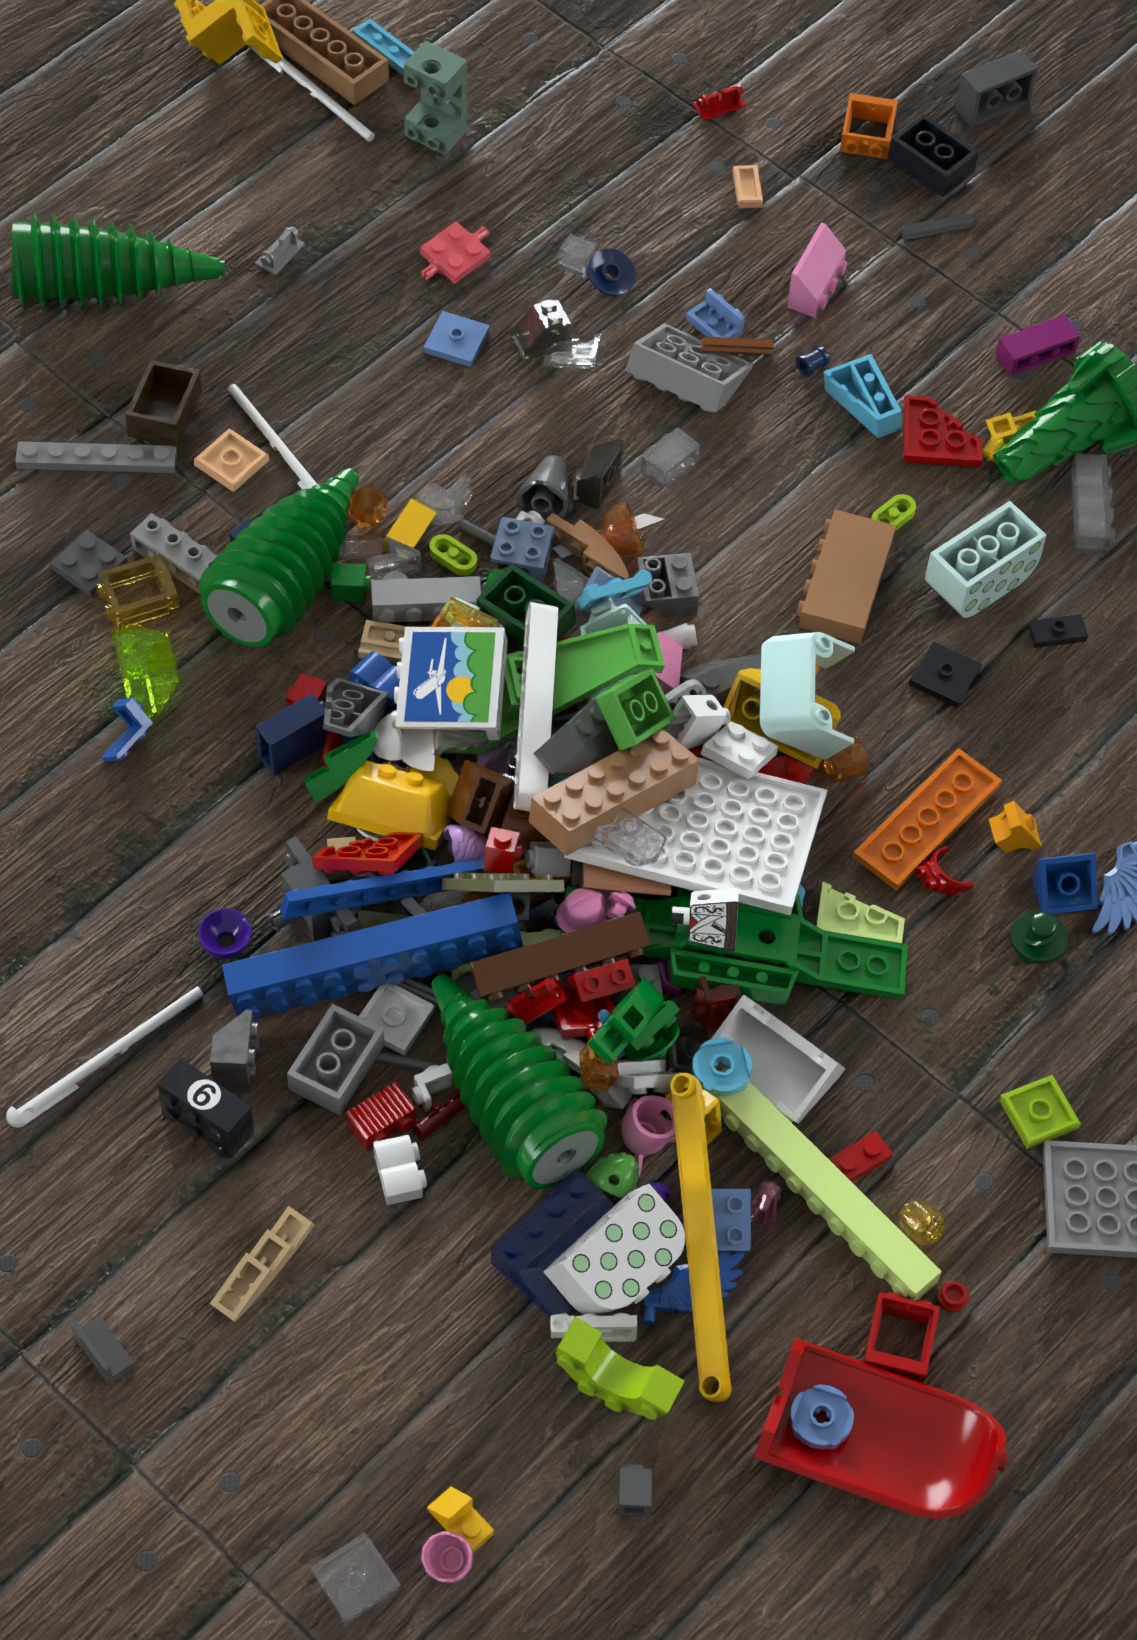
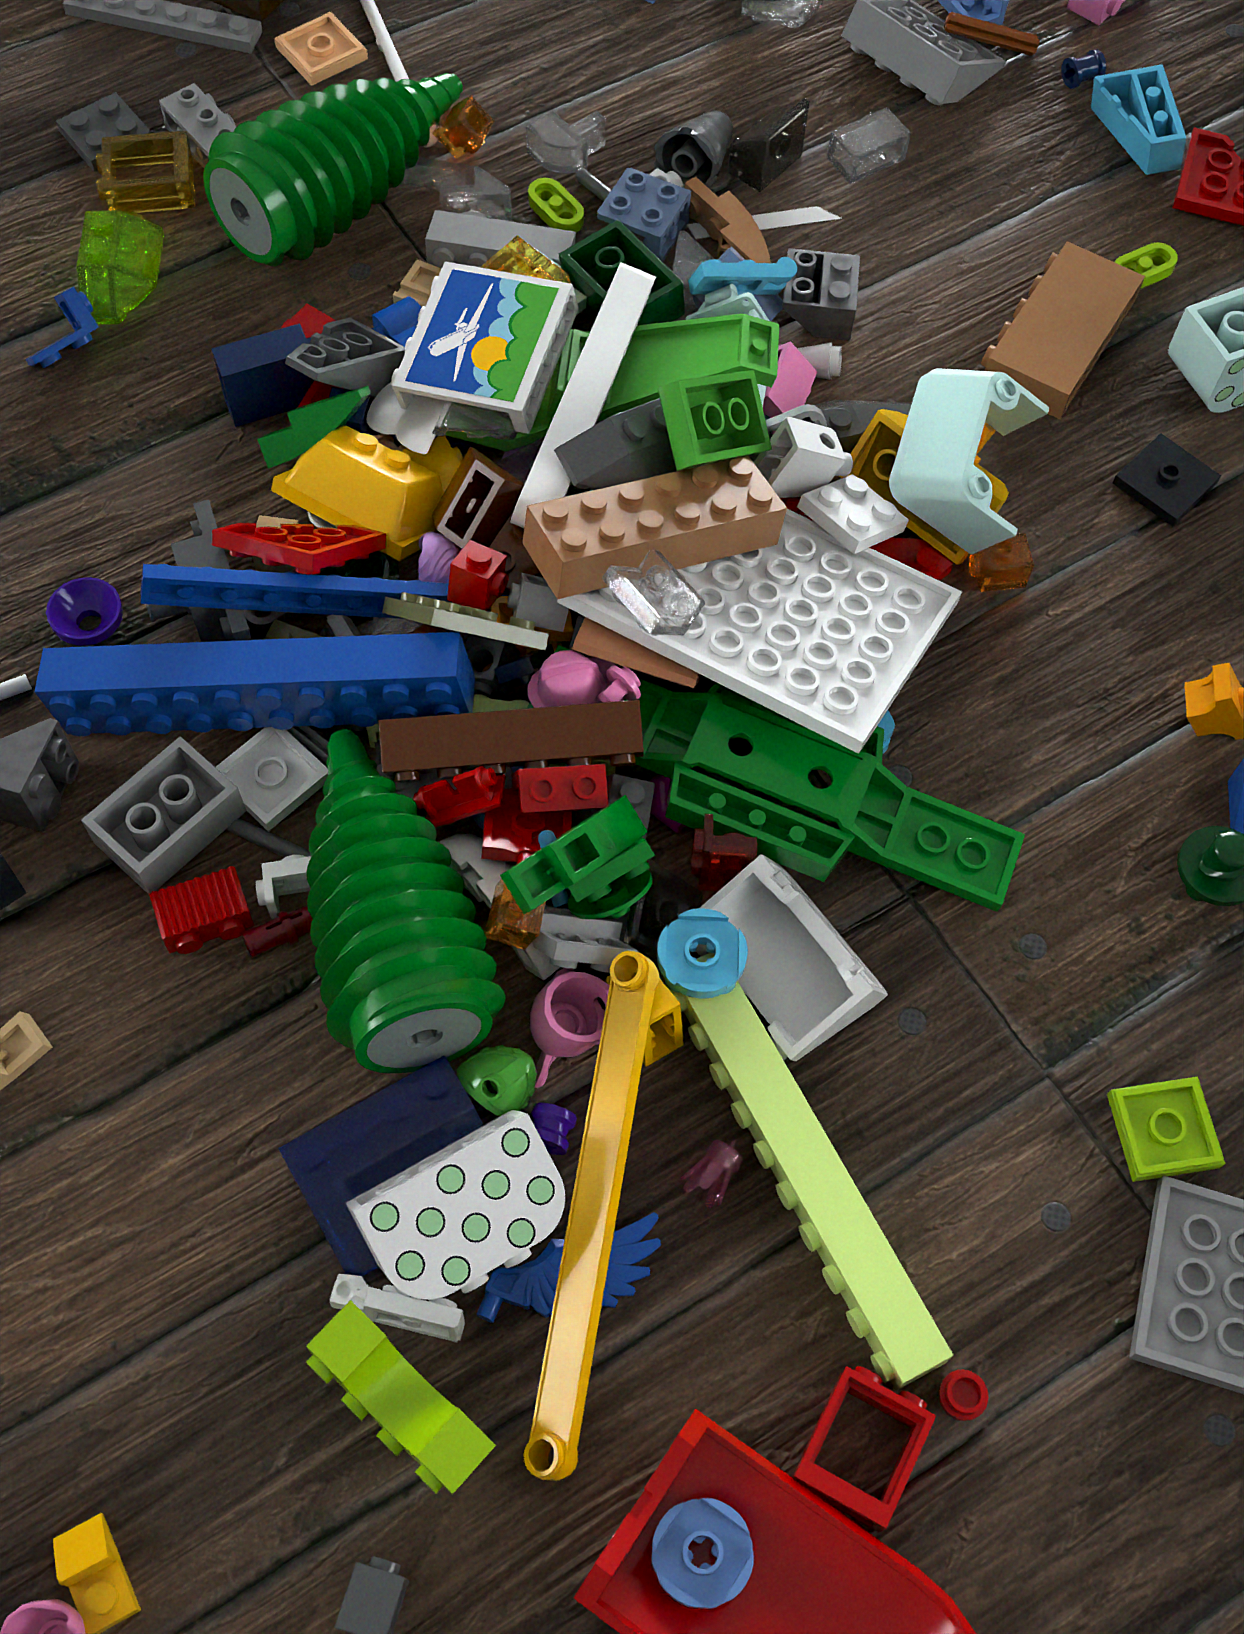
camera: 15 degrees right, 5 degrees up
(349, 582) = (410, 211): green brick -> none
(398, 1169) = (197, 994): white brick -> none
(411, 524) = (513, 157): yellow hinge -> none
(621, 530) = (779, 213): clear orange cylinder -> none
(711, 917) = (741, 732): torso -> none
(732, 1219) = (652, 1184): medium blue bracket -> none
(849, 916) = (954, 777): yellowish green wing -> none
(862, 1156) = (876, 1135): red plate -> none
(921, 1222) = (943, 1262): clear yellow head -> none
(926, 819) = (1094, 665): orange plate -> none
(936, 879) = (1088, 750): red helmet -> none

